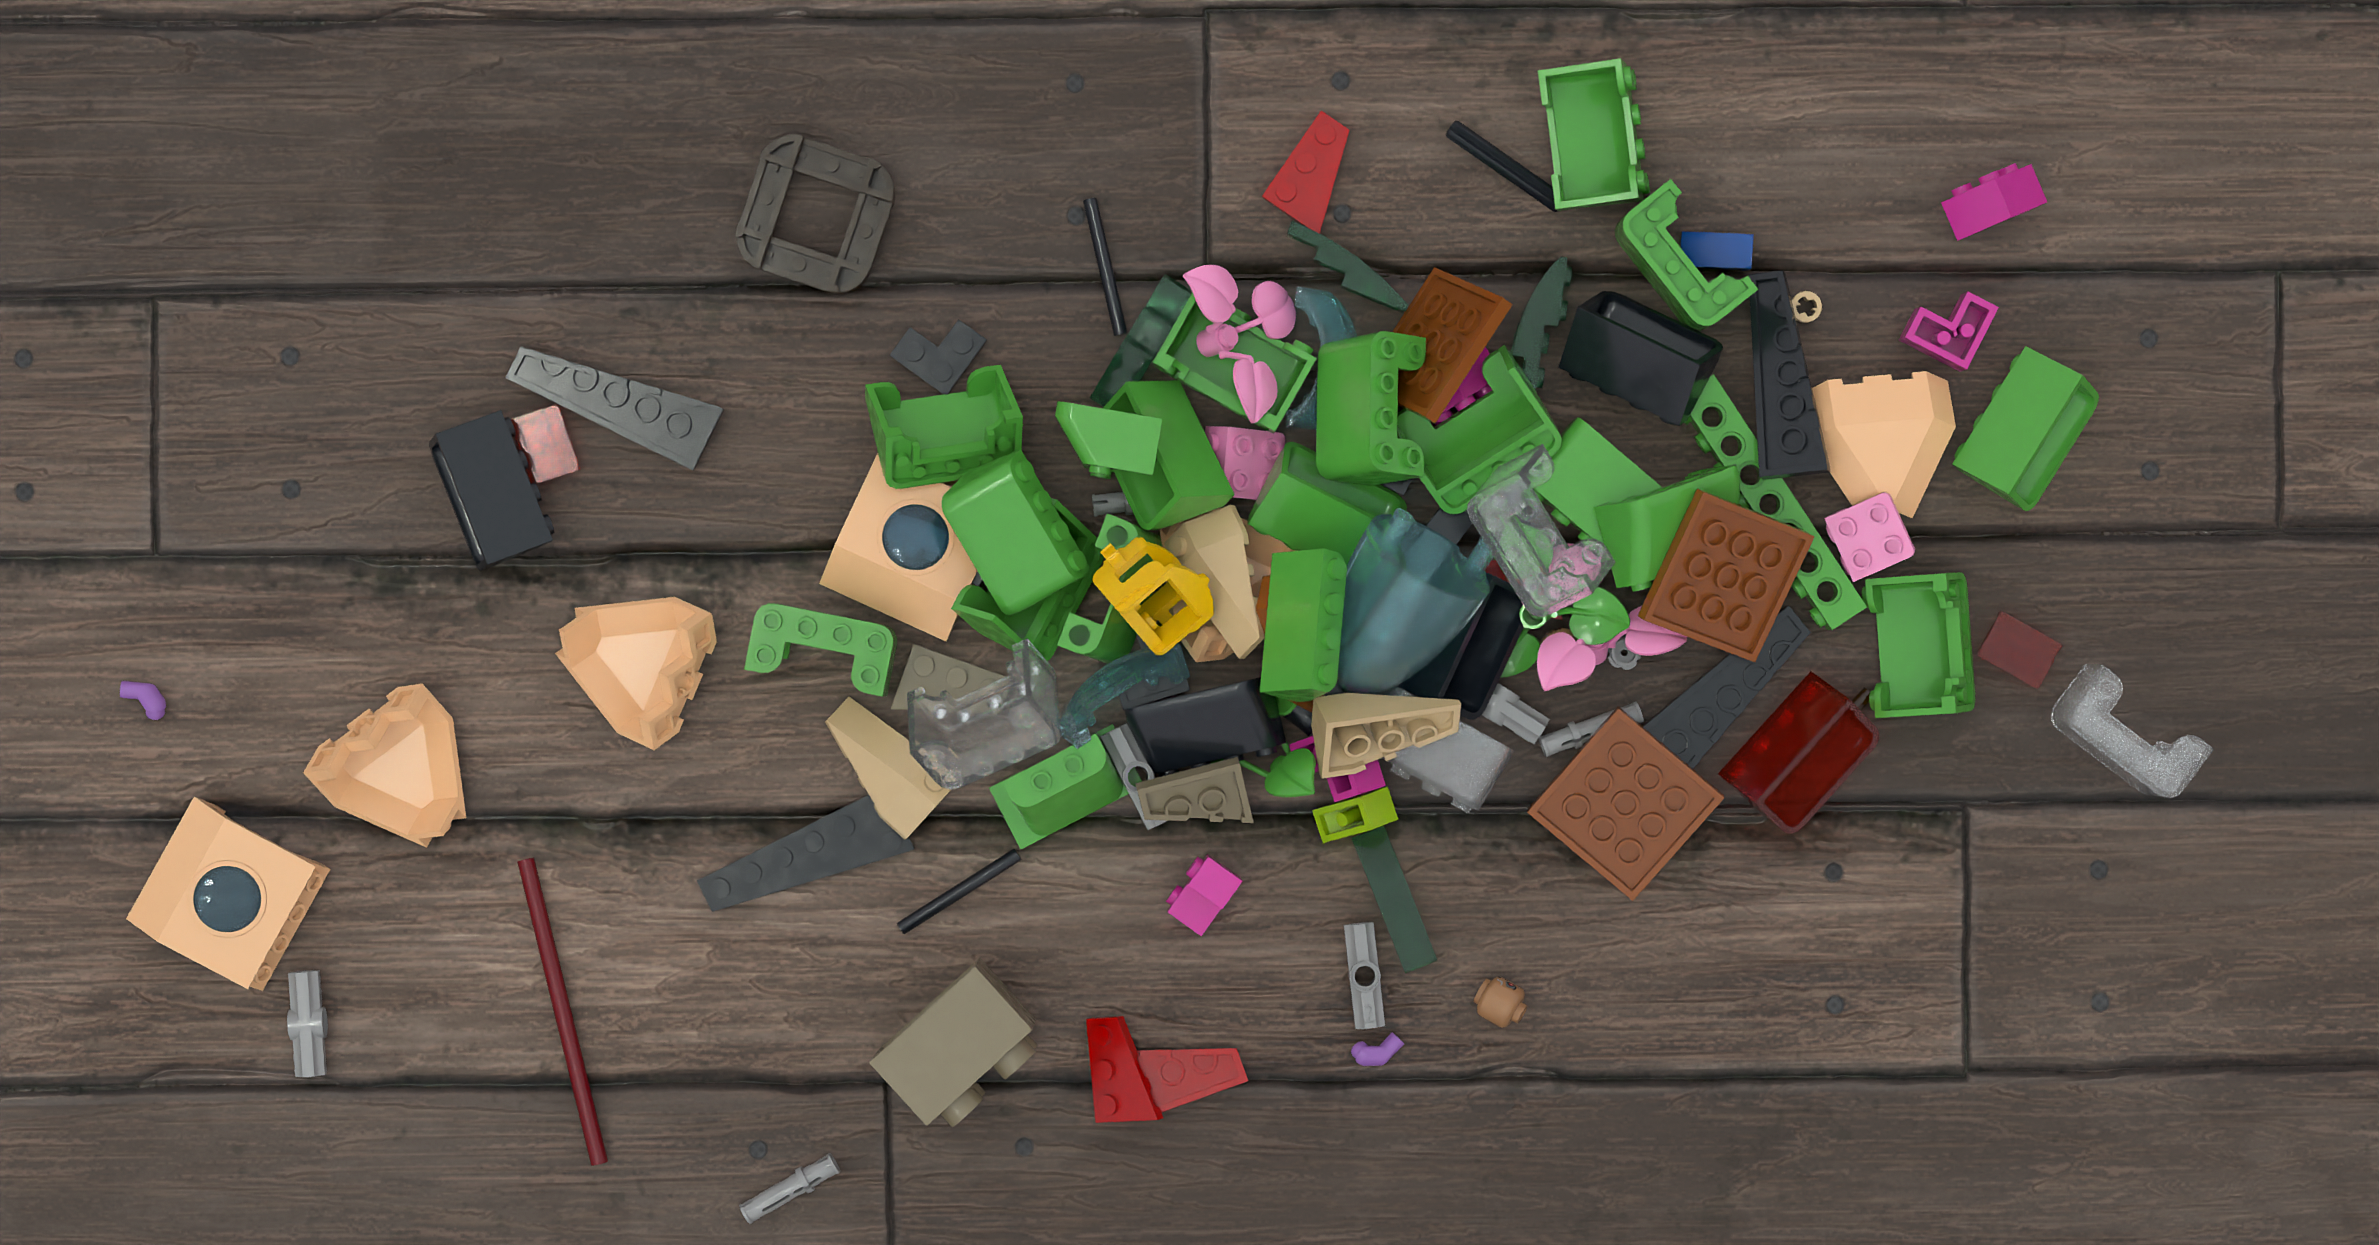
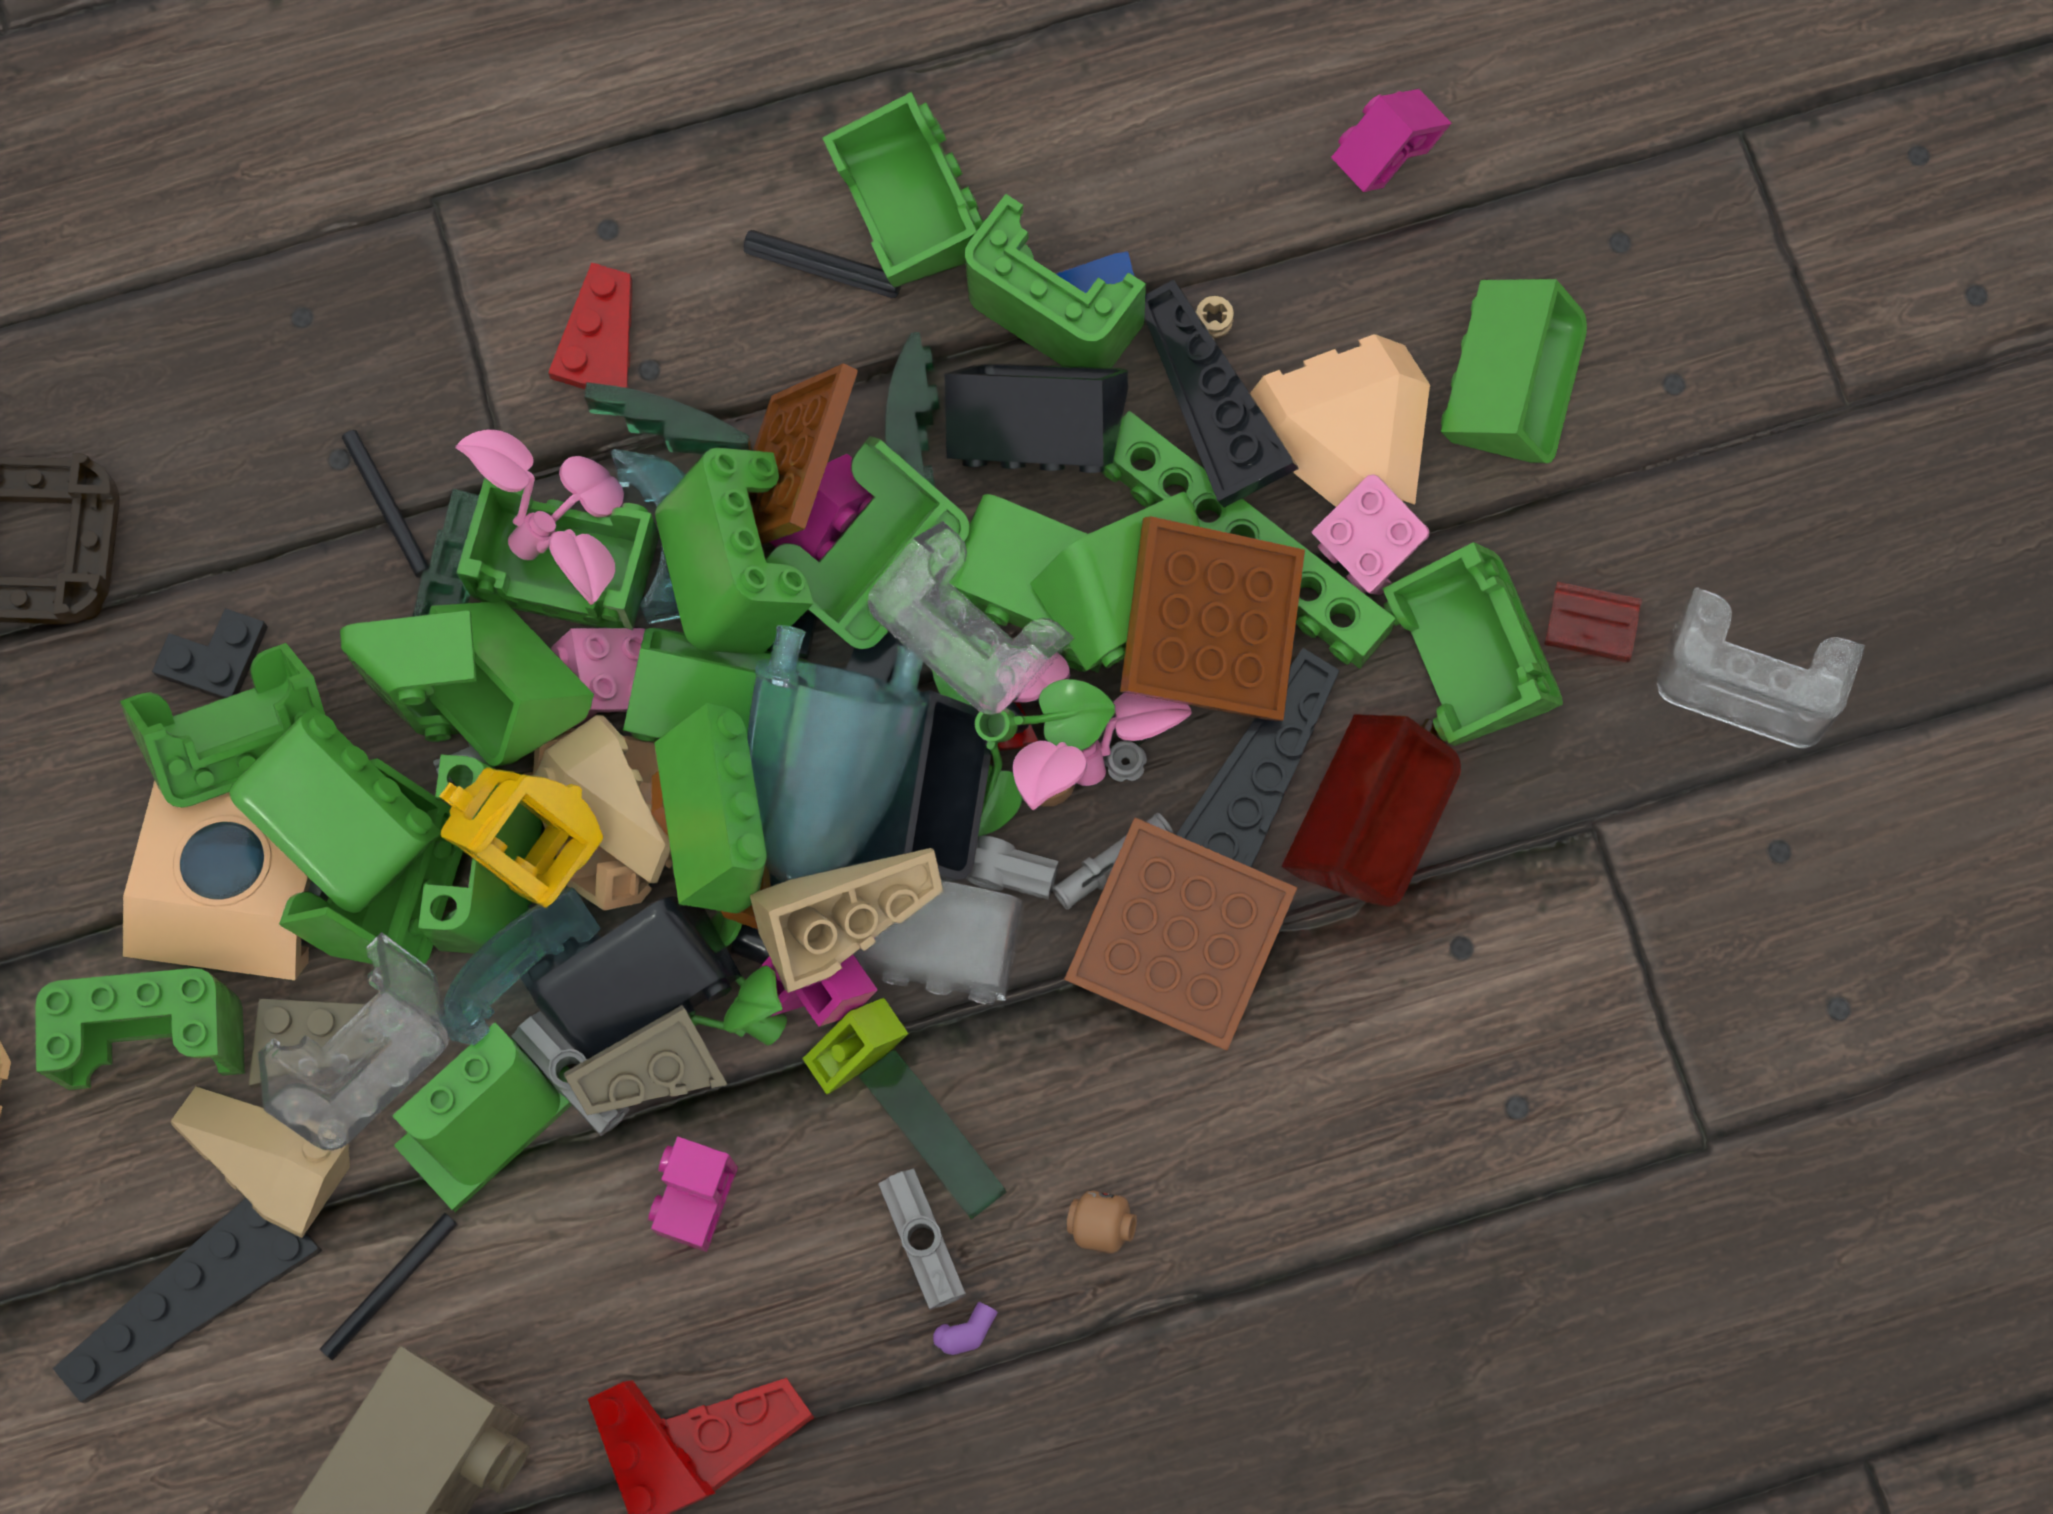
camera: 10 degrees left, 15 degrees down
(1953, 339) = (1388, 298): dark pink brick -> none

